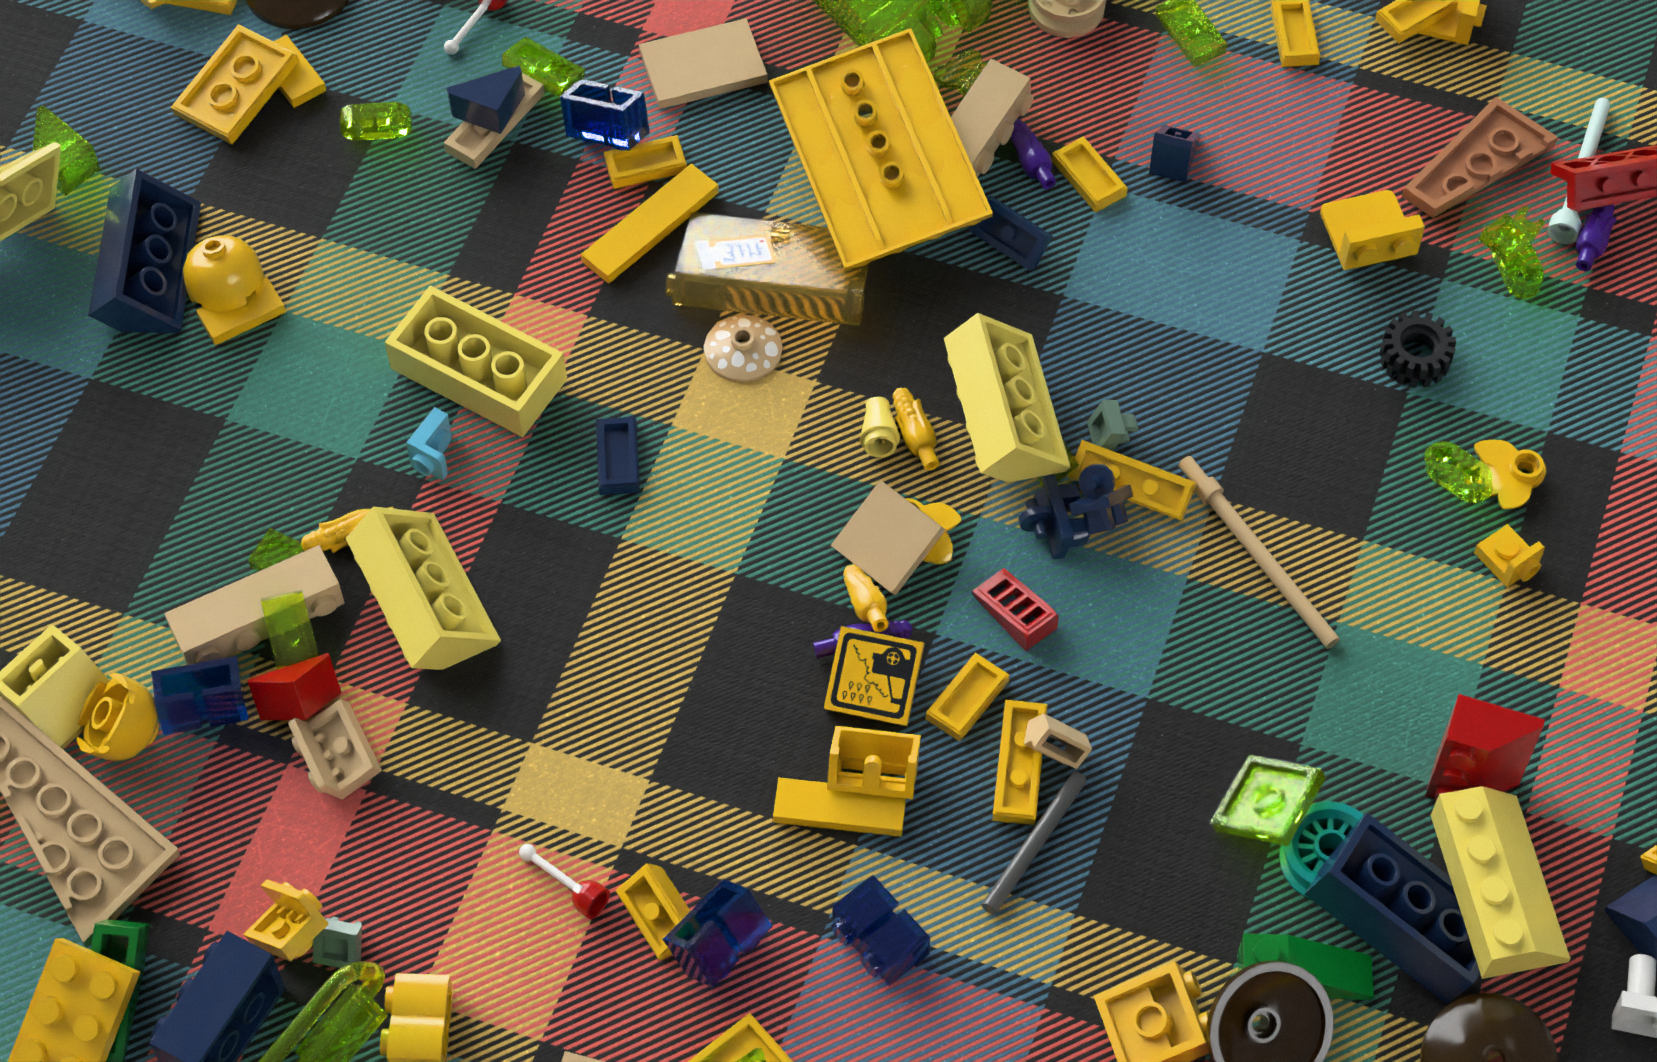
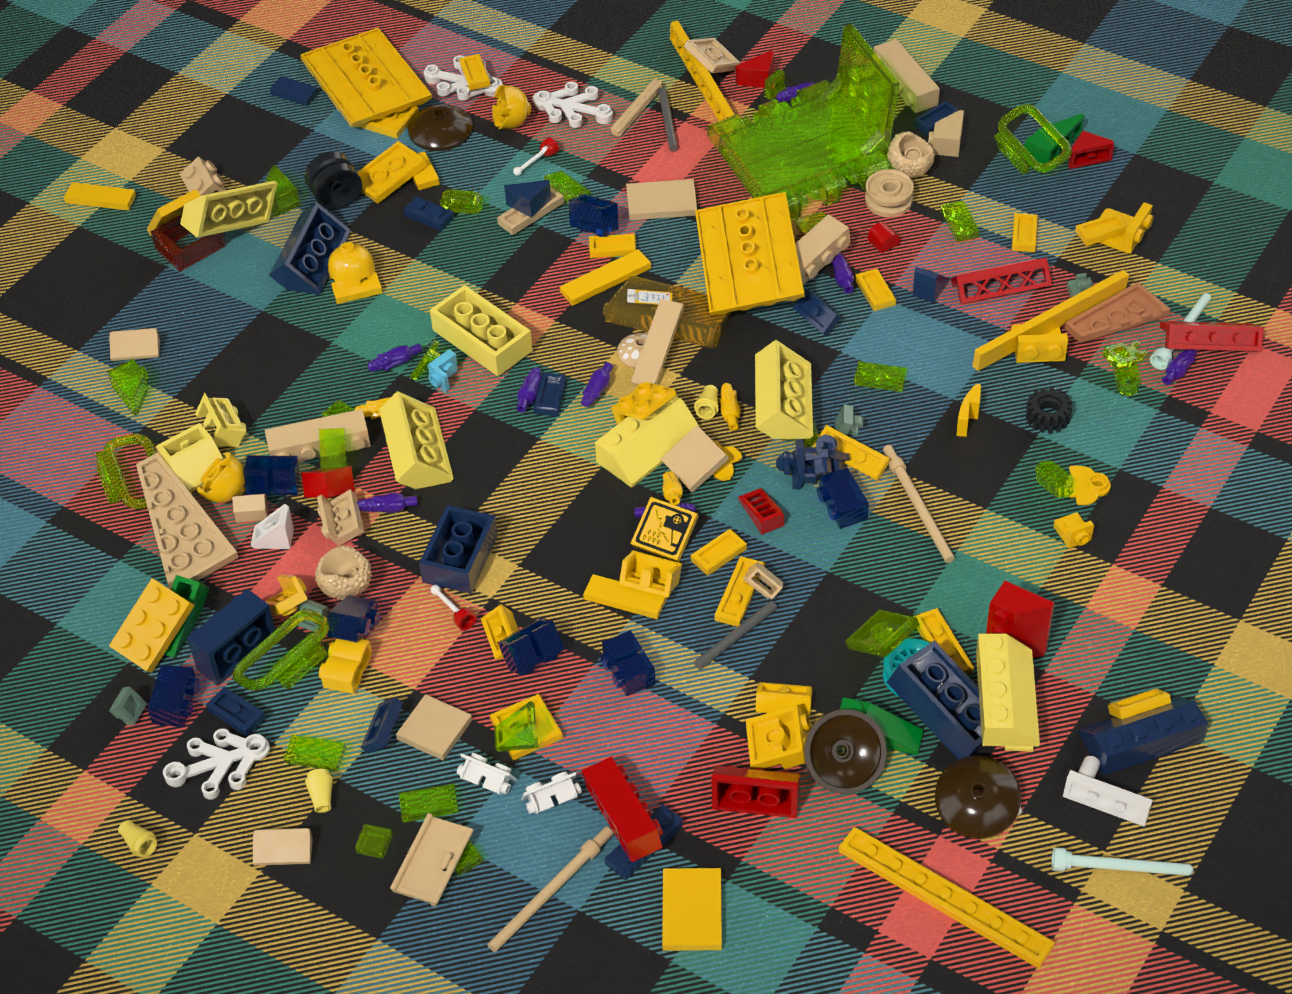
camera: 15 degrees right, 10 degrees down
(87, 599) = (225, 417): none -> light yellow window
(150, 120) = (333, 180): none -> black wheel
(176, 759) = (250, 508): none -> tan piece
(228, 796) = (274, 531): none -> white slope
(324, 150) = (428, 213): none -> dark blue plate
(341, 433) = (395, 357): none -> dark purple piece
(371, 858) = (343, 572): none -> tan hair
(404, 426) = (431, 355): none -> clear neon green animal
(404, 708) = (387, 503): none -> dark purple piece
(413, 940) = (353, 618): none -> clear blue piece
(550, 776) = (458, 549): none -> dark blue brick
(581, 454) = (529, 389): none -> dark purple piece
(691, 427) = (597, 384): none -> dark purple piece
(773, 338) = (658, 342): none -> tan tile
(781, 457) = (642, 401): none -> yellow bracket
(800, 512) = (637, 445): none -> light yellow slope
(1077, 77) = (883, 237): none -> red brick
(1138, 331) = (880, 376): none -> clear neon green plate
(1140, 942) = (774, 697): none -> yellow slope
(1142, 565) = (843, 498): none -> clear blue piece
(1278, 113) = (996, 273): none -> red fence
(1296, 370) = (968, 409): none -> yellow slope
(1355, 786) = (935, 628): none -> yellow tile
(1382, 190) = (1050, 319): none -> yellow tile
(1410, 122) = (1080, 284): none -> sand green tile

